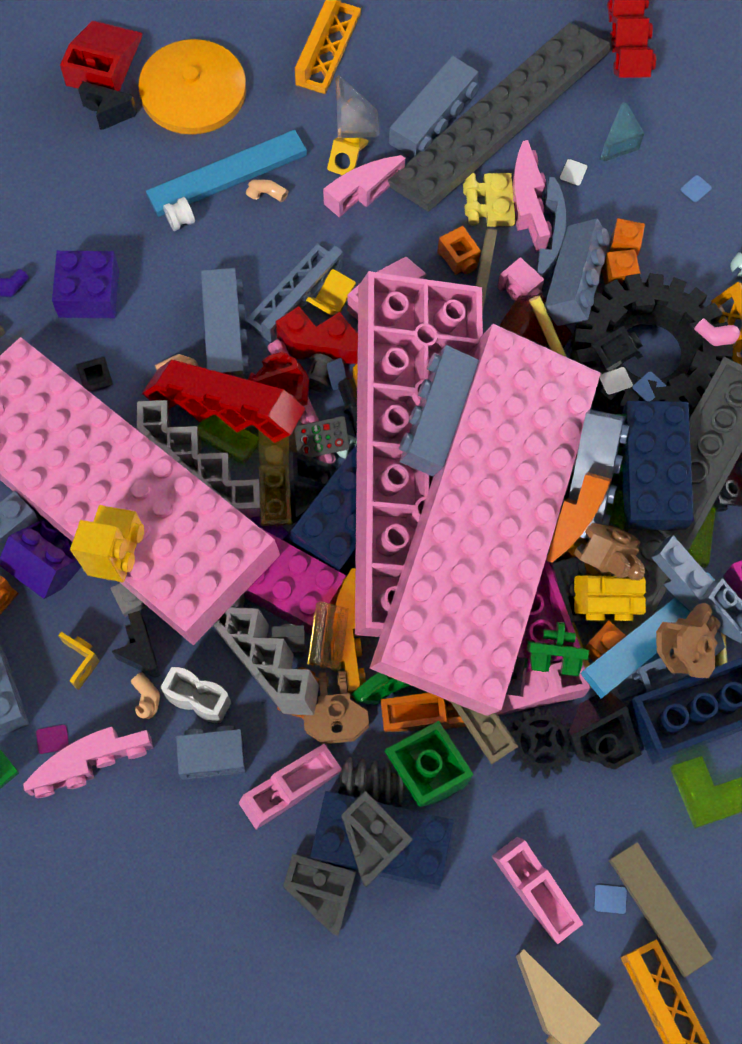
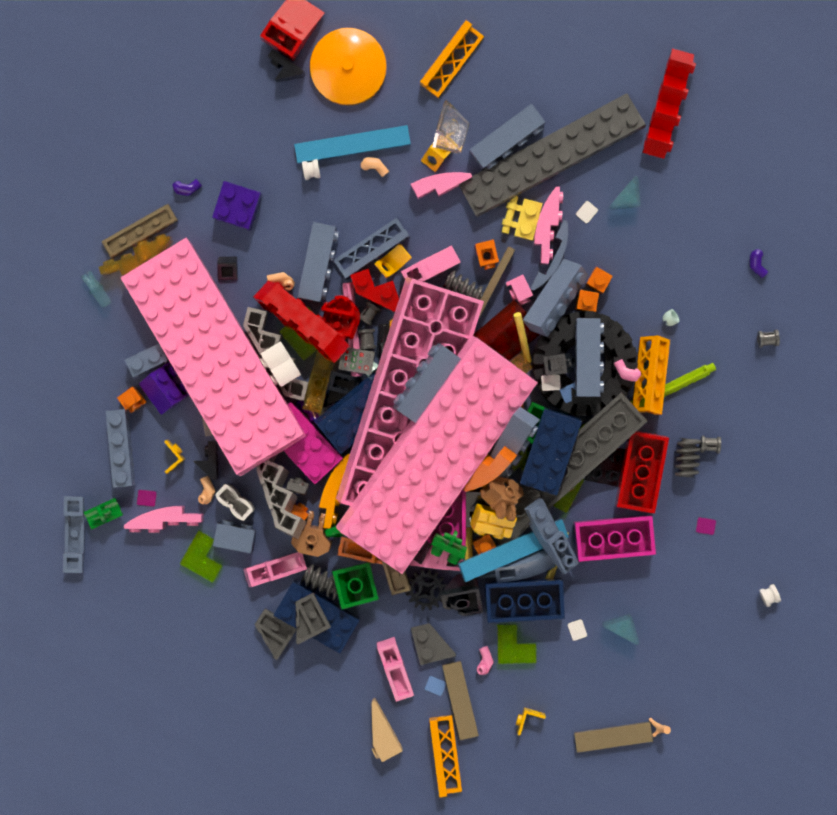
camera: 15 degrees right, 20 degrees up
(108, 543) = (206, 409): yellow brick -> none
(159, 811) = (197, 560): none -> clear neon green plate
(209, 460) = (280, 364): none -> white brick
(316, 637) = (314, 490): clear yellow tile -> none
(326, 404) = (367, 339): none -> dark grey bush
(336, 372) = (379, 317): medium blue sticker -> none
(578, 831) = (430, 644): none -> dark grey wing
(657, 327) = (588, 357): none -> sand blue brick
(677, 830) = (486, 662): none -> bright pink arm
(691, 641) = (527, 565): medium nougat hinge -> none
(696, 188) = (665, 249): medium blue sticker -> none

